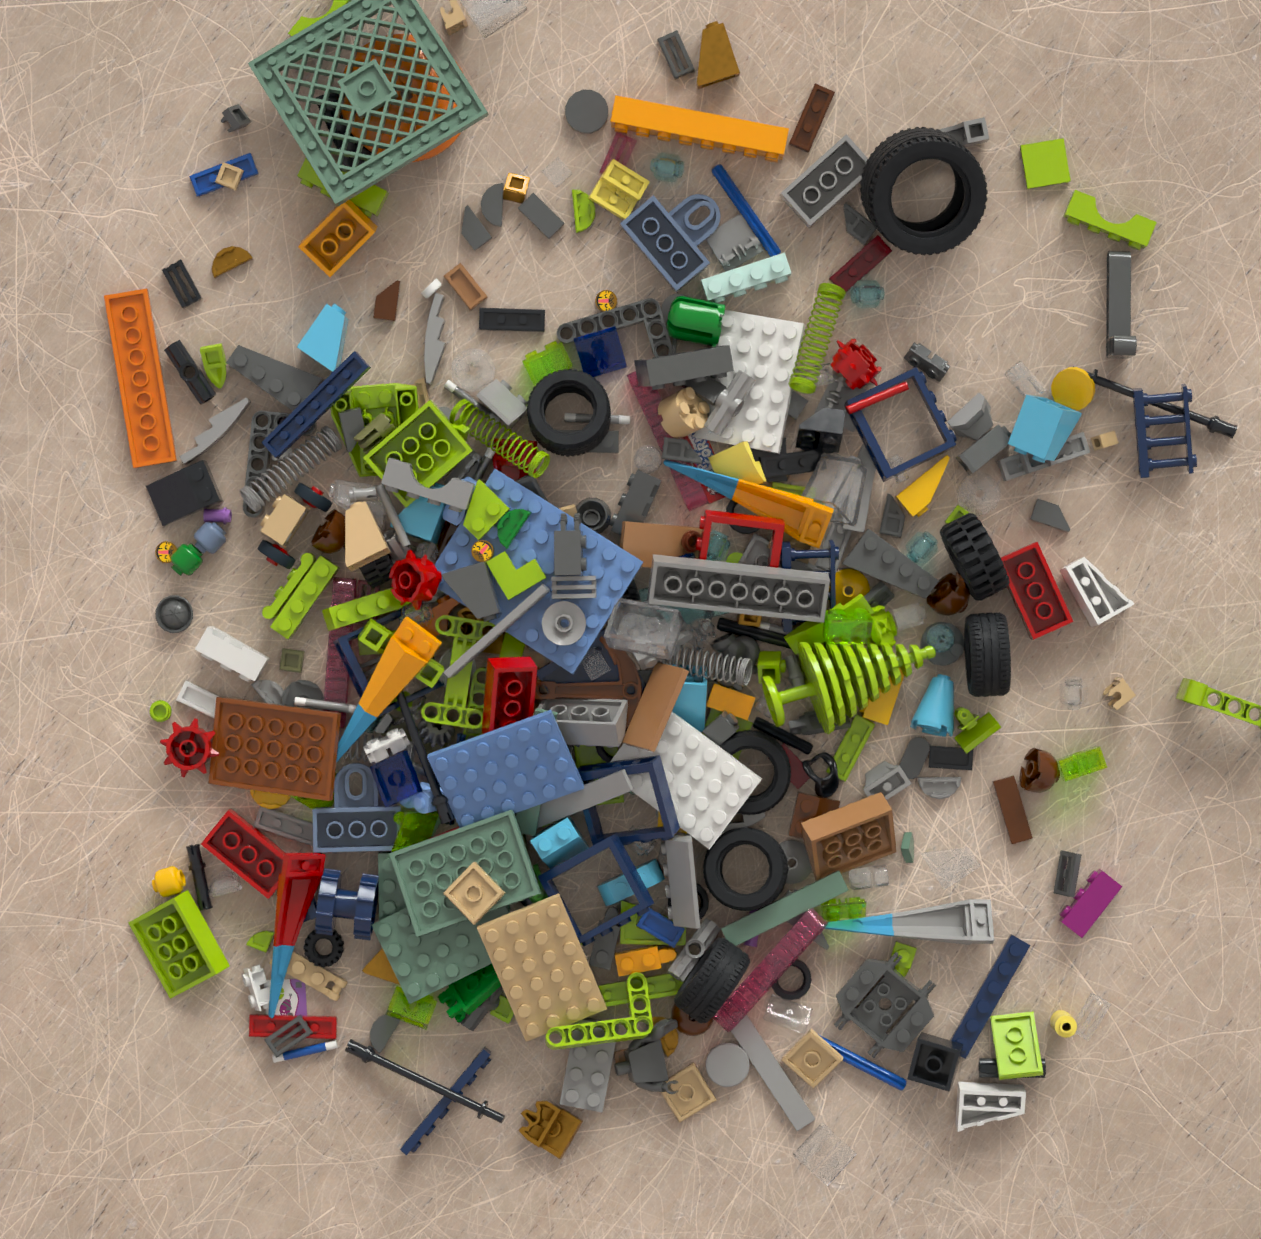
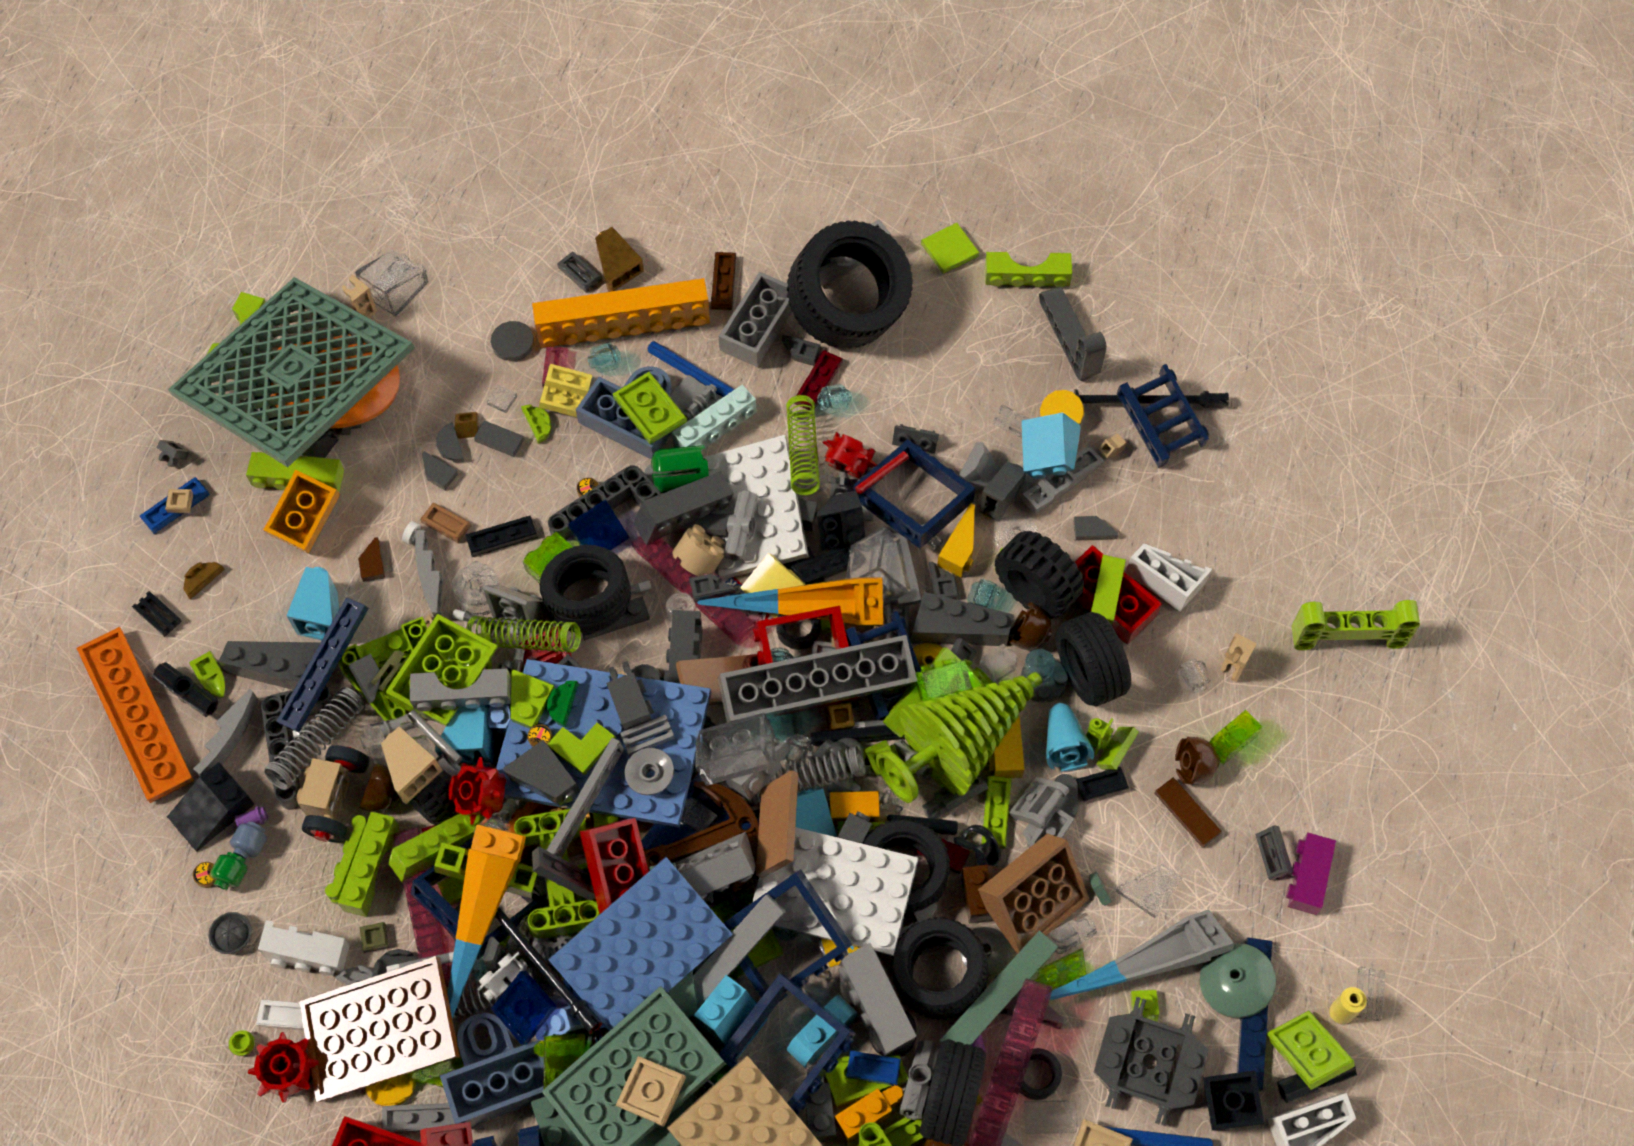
camera: 15 degrees left, 25 degrees down
(462, 686) = (562, 873): none -> dark grey plate
(688, 249) = (649, 407): none -> lime tile
(885, 751) = (1034, 798): none -> light grey plate
(939, 786) = (1102, 817): light grey tile -> none
(1000, 971) = (1243, 995): none -> sand green dish
(1030, 591) = (1108, 587): none -> lime tile

